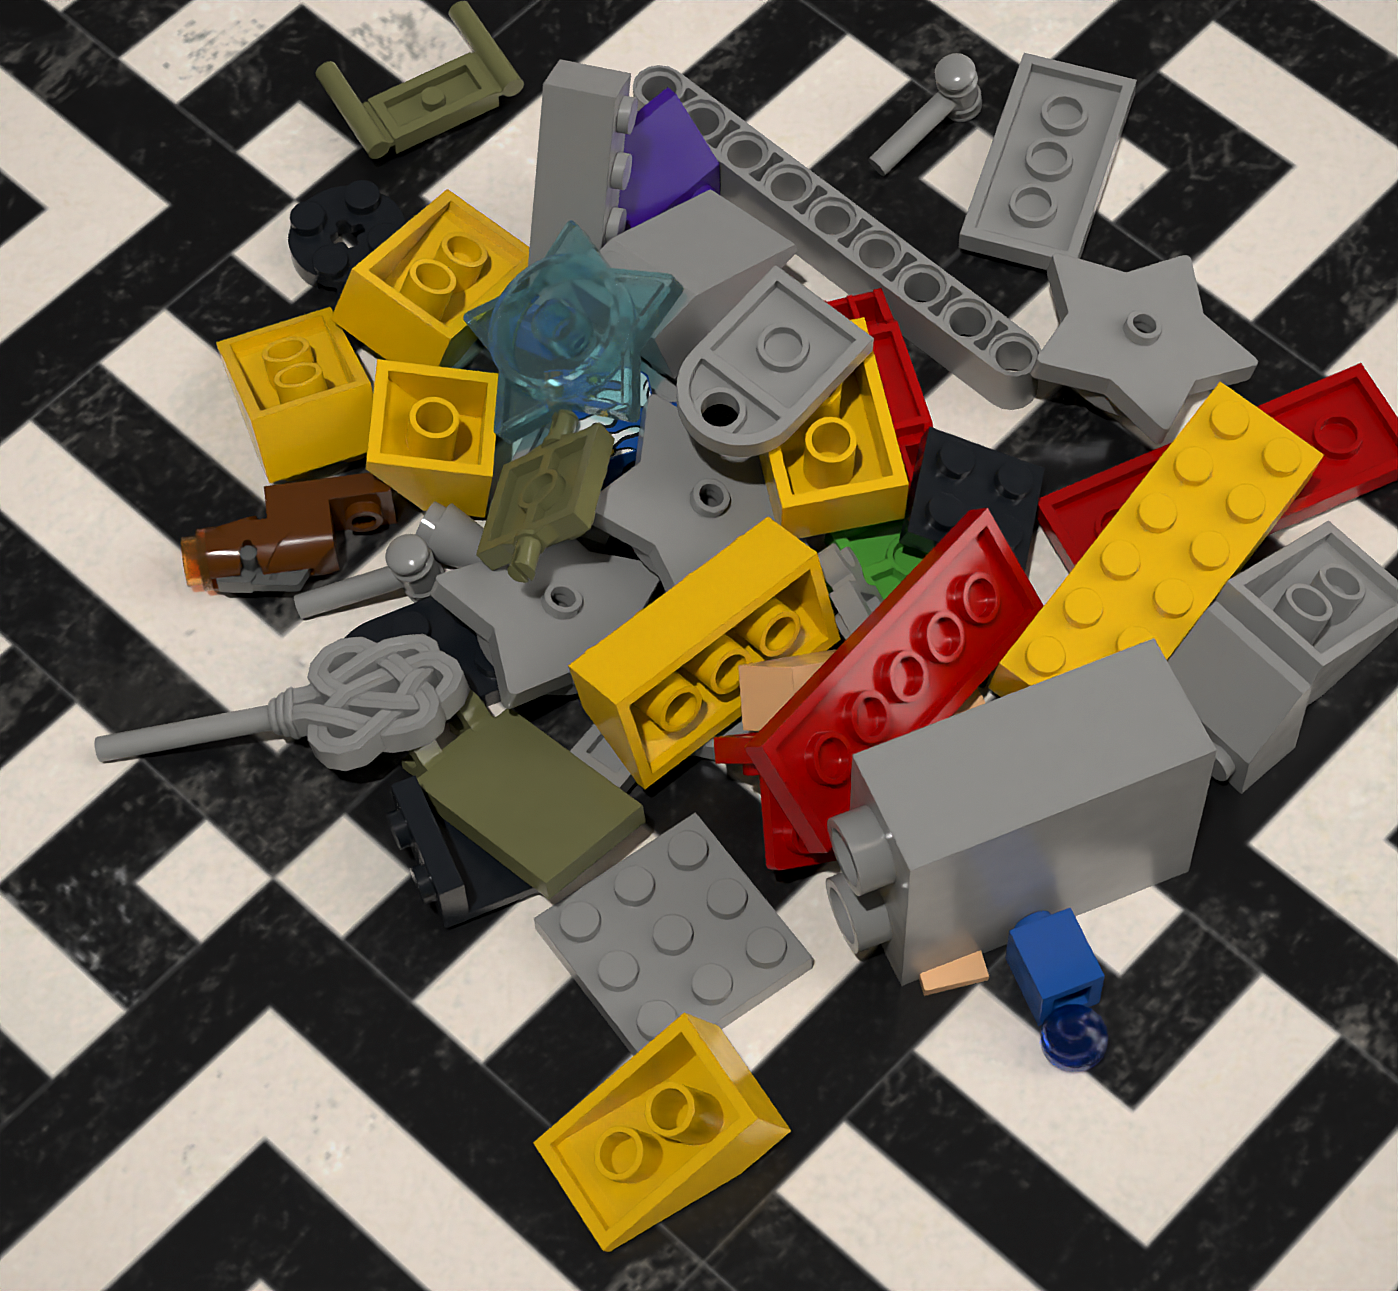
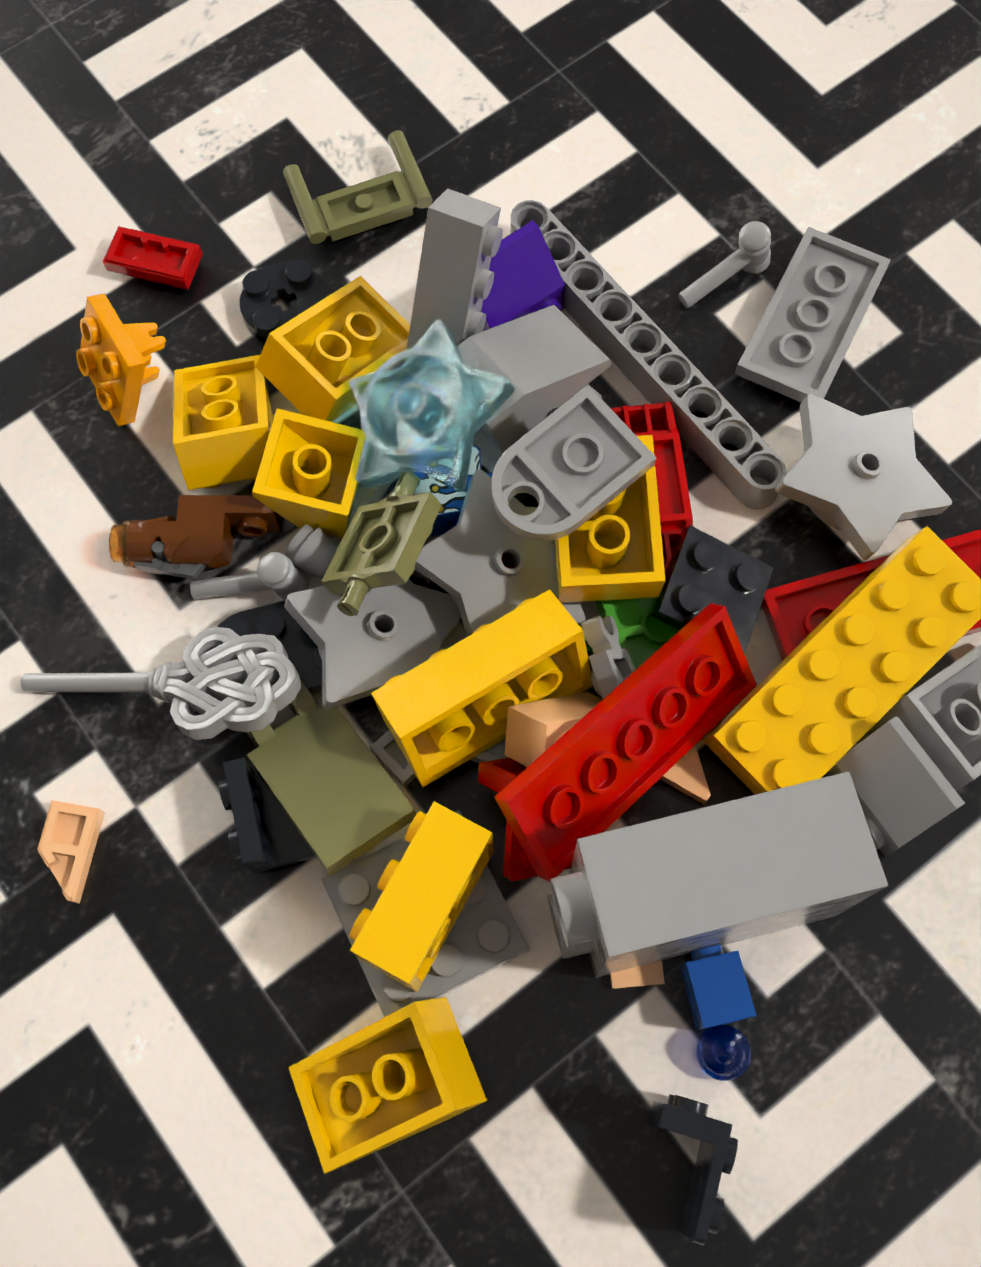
camera: 10 degrees right, 10 degrees up
(143, 333) = (116, 357): none -> light orange plate
(159, 204) = (153, 257): none -> red plate
(198, 930) = (69, 844): none -> light nougat tile
(672, 893) = (422, 895): none -> yellow brick
(1054, 1108) = (715, 1155): none -> black bracket

